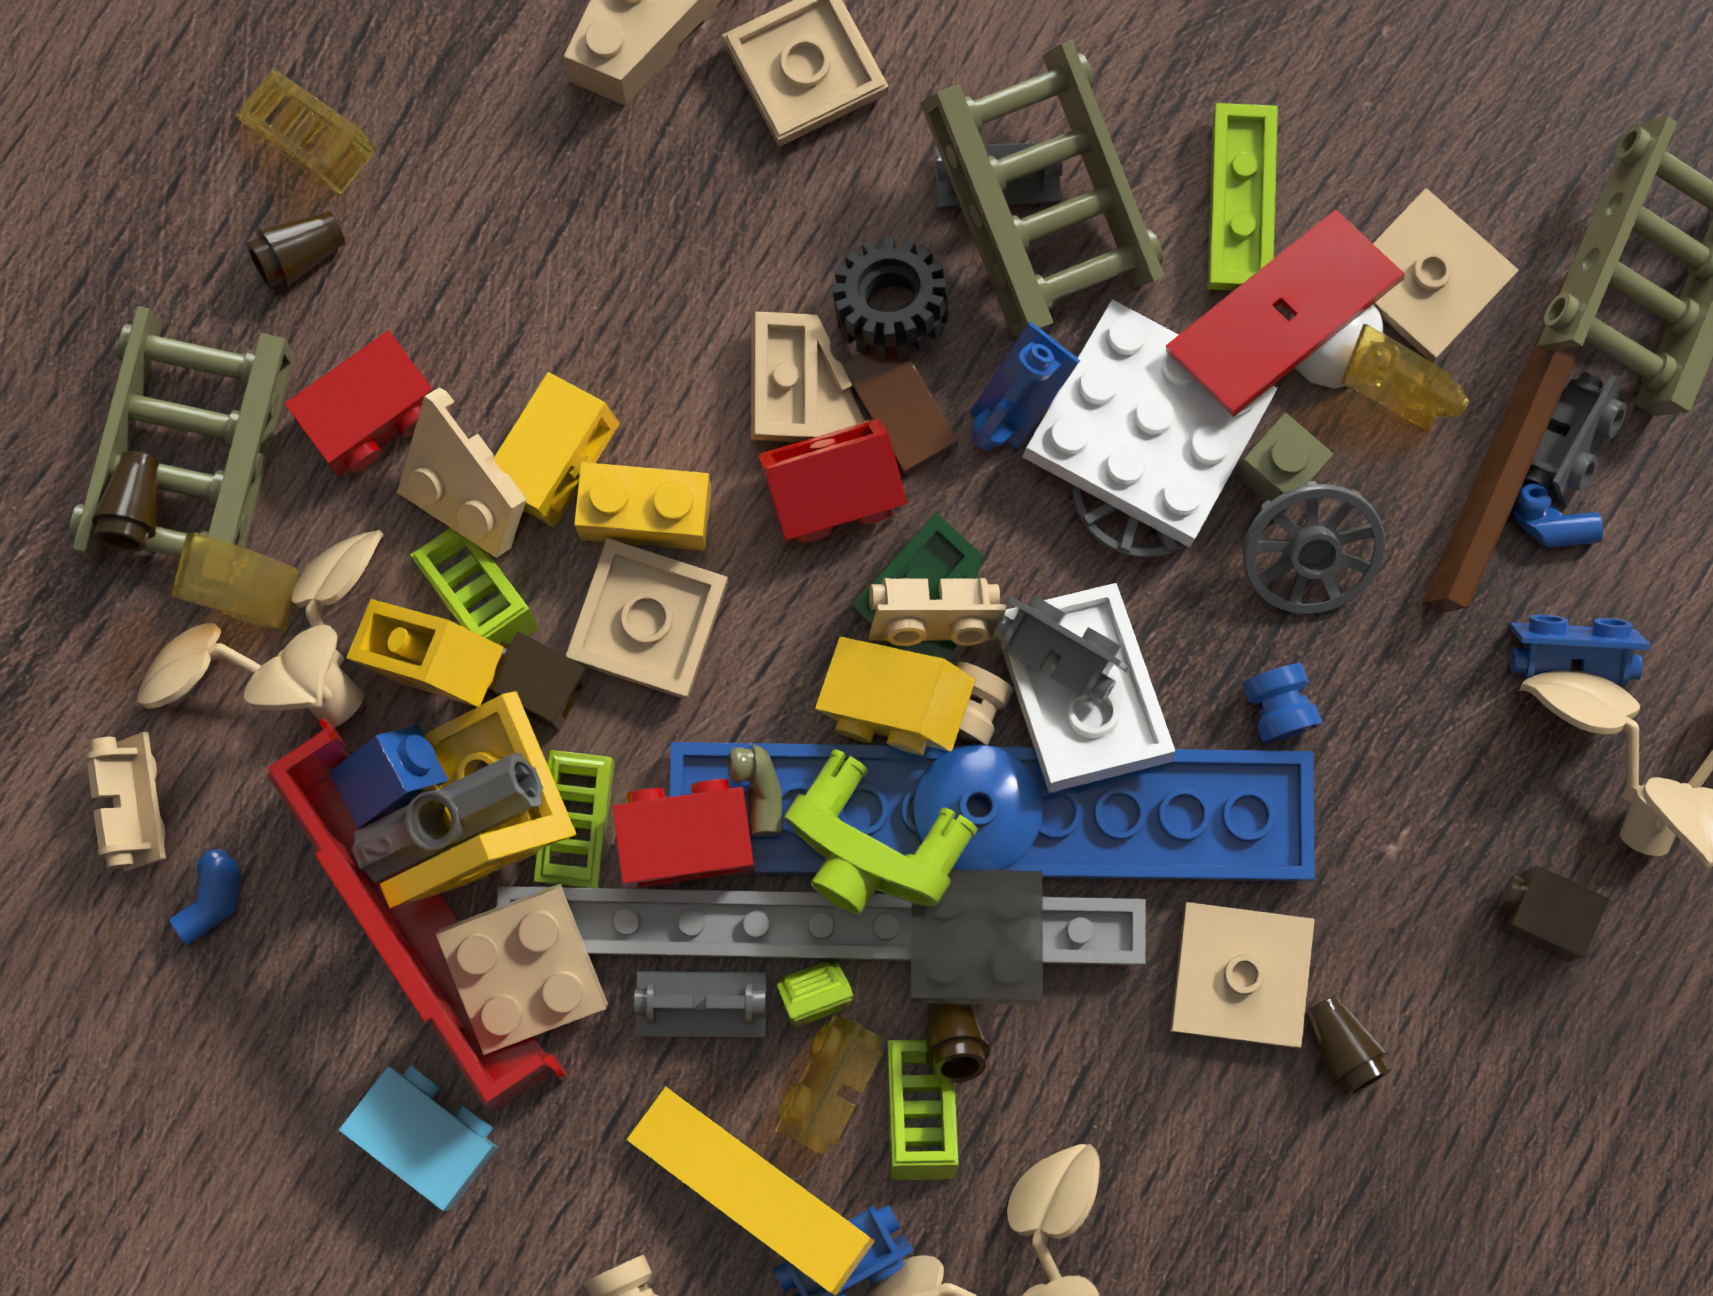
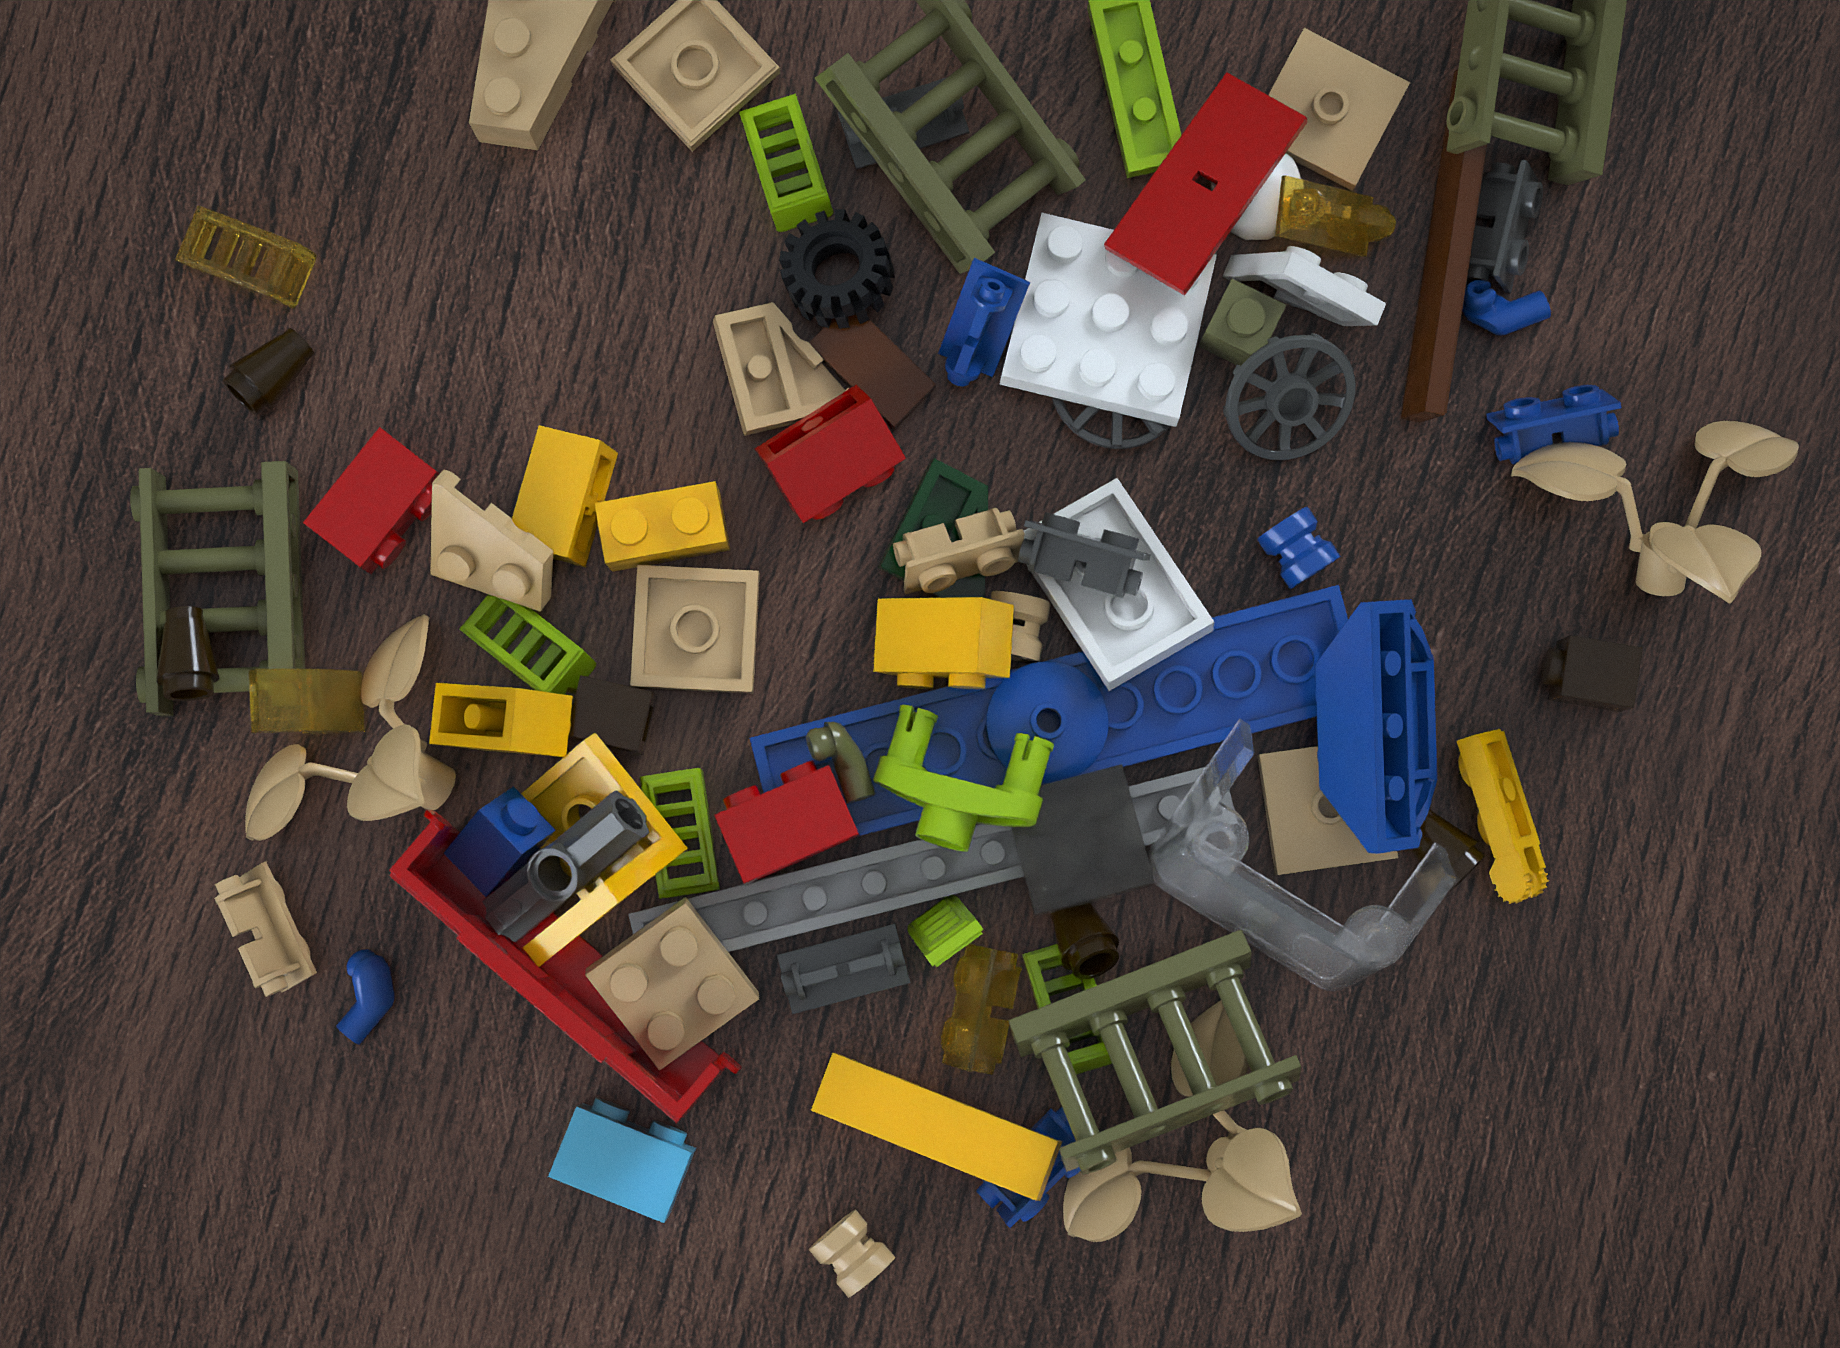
camera: 15 degrees left, 5 degrees up
(869, 218) = (798, 196): none -> lime slope
(1020, 1111) = (1163, 990): none -> olive fence
(1092, 998) = (1202, 866): none -> clear windscreen
(1316, 901) = (1378, 725): none -> blue wedge
(1363, 443) = (1309, 286): none -> white wing
(1421, 1033) = (1503, 816): none -> yellow hinge

